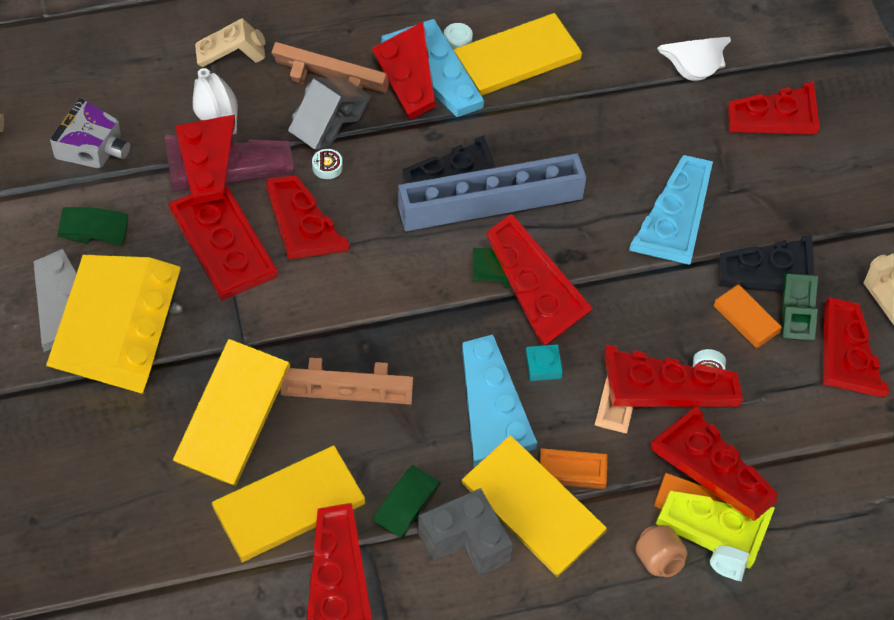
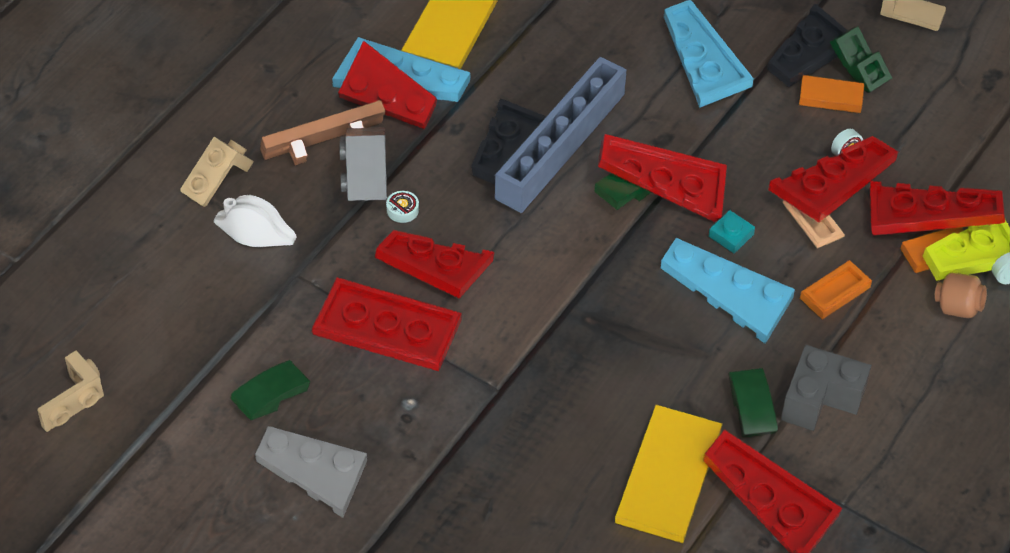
camera: 40 degrees left, 5 degrees down
(88, 137) = (185, 323): light grey torso -> none
(114, 319) = (386, 440): yellow slope -> none
(205, 156) = (307, 266): red wing -> none
(231, 412) = (559, 438): yellow tile -> none
(245, 162) = (314, 268): clear pink wing -> none
(347, 385) = (636, 339): nougat hinge -> none
(458, 35) = (391, 36): light aqua tile -> none
(535, 506) = (851, 329): yellow tile -> none
(846, 350) = (927, 72): red wing -> none

